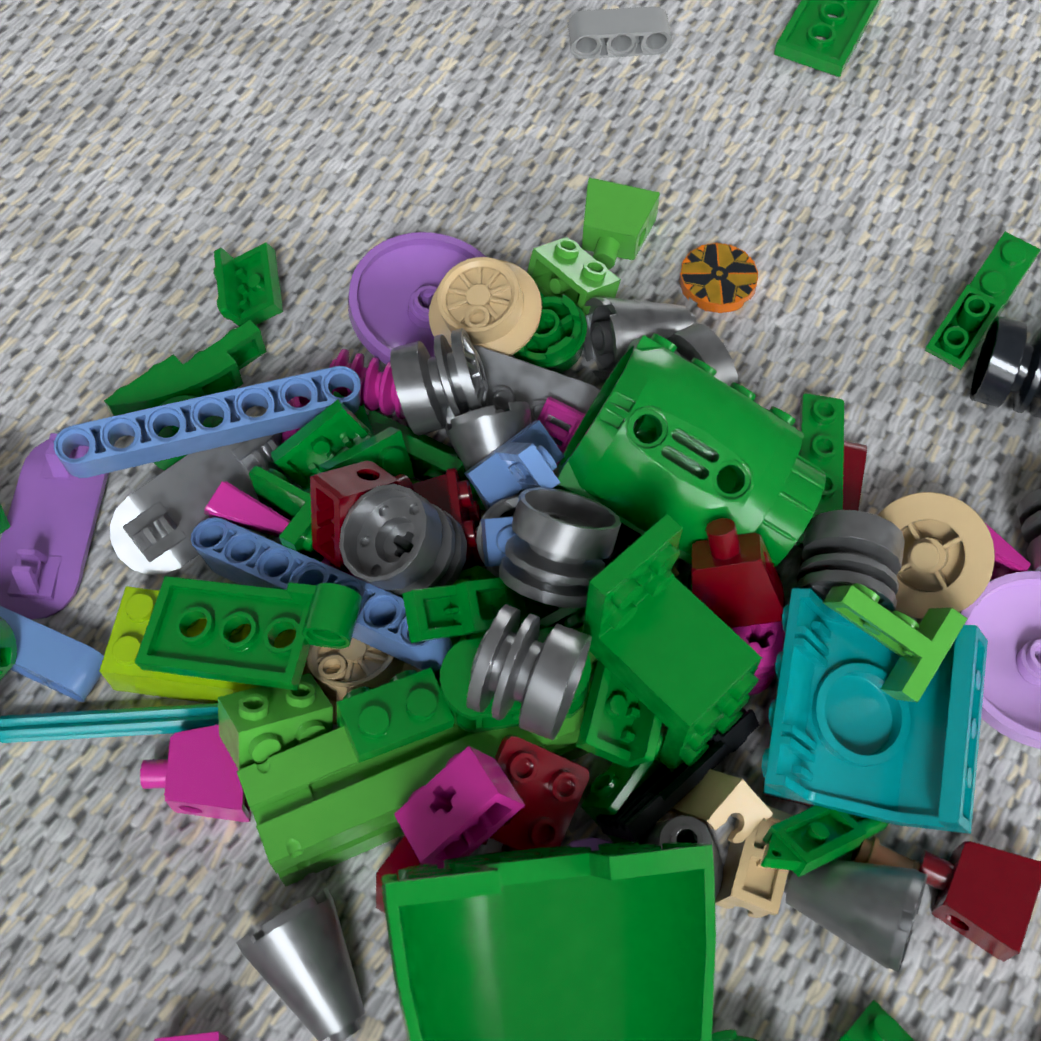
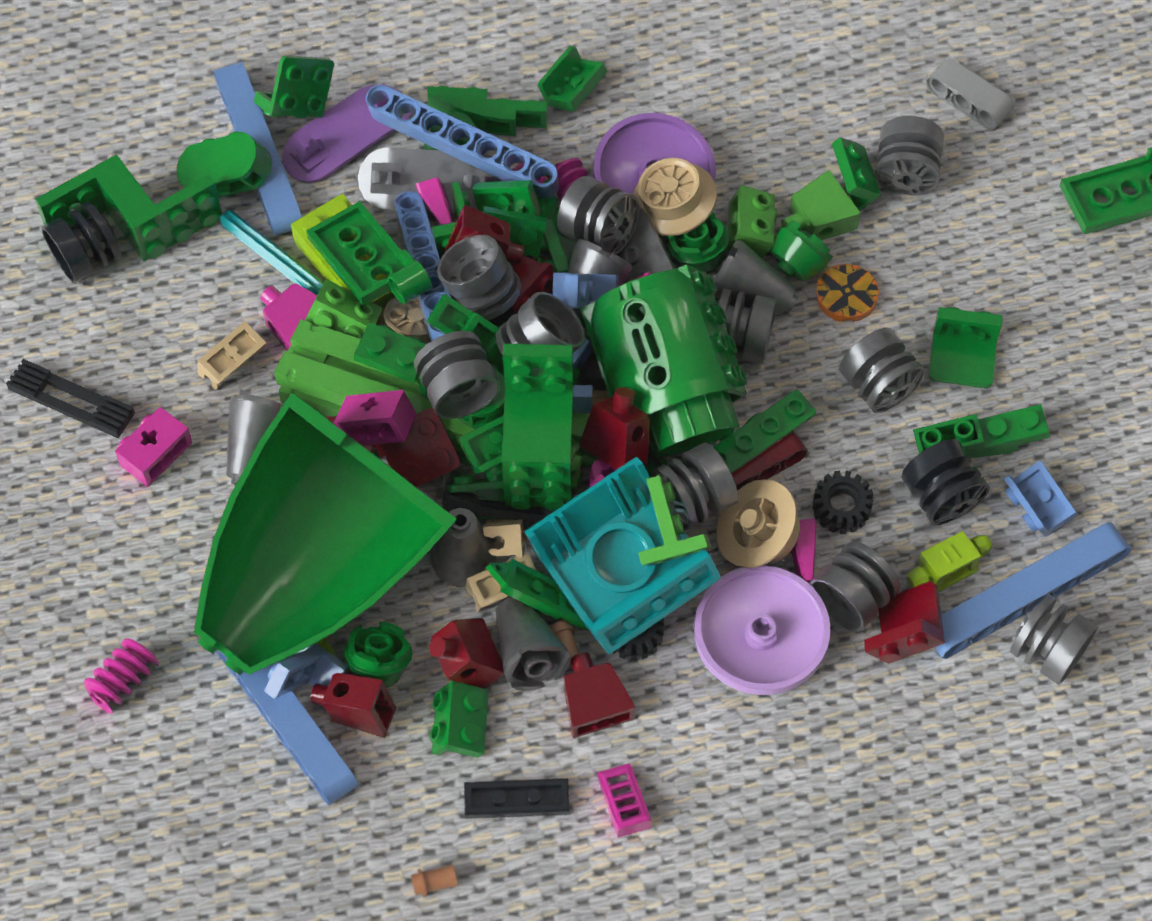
camera: 45 degrees right, 0 degrees up
(177, 888) = (230, 354): none -> tan hinge
(609, 164) = (856, 172): none -> green bracket
(642, 112) = (909, 155): none -> flat silver wheel
(649, 268) = (800, 252): none -> green cone
(818, 981) = (467, 653): none -> dark red torso
(848, 314) = (882, 370): none -> flat silver wheel
(872, 242) = (964, 347): none -> green bracket
(953, 447) = (842, 519): none -> black tyre

